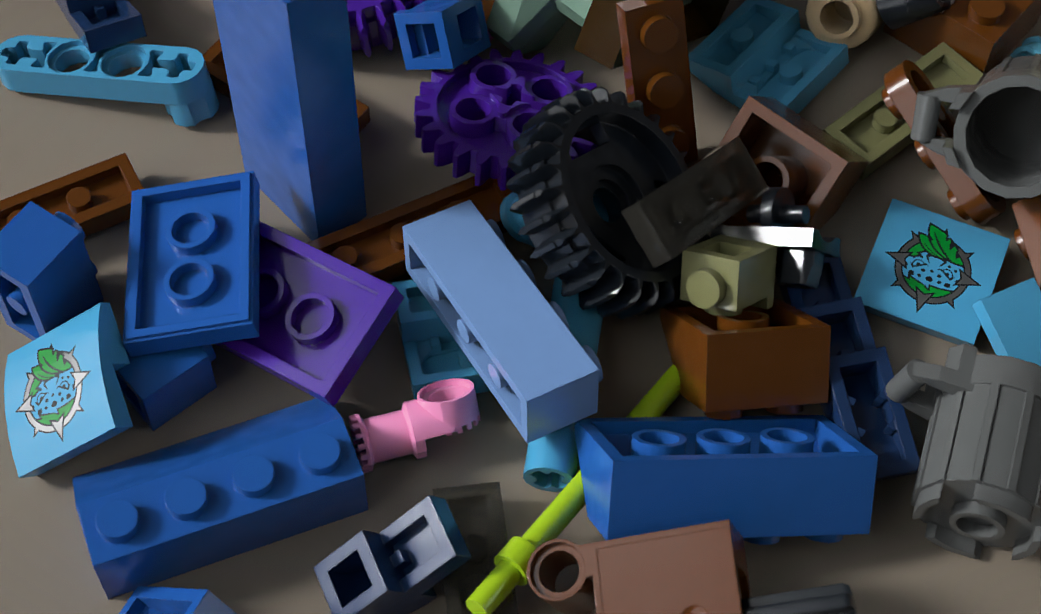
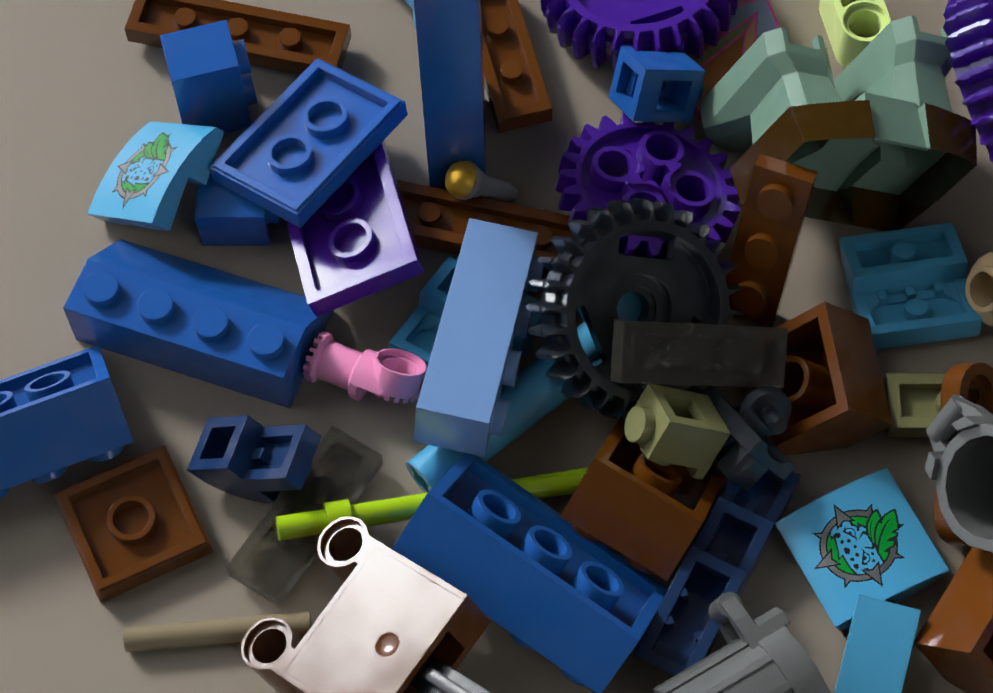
camera: 45 degrees right, 5 degrees up
(361, 205) = (467, 181): none -> piece

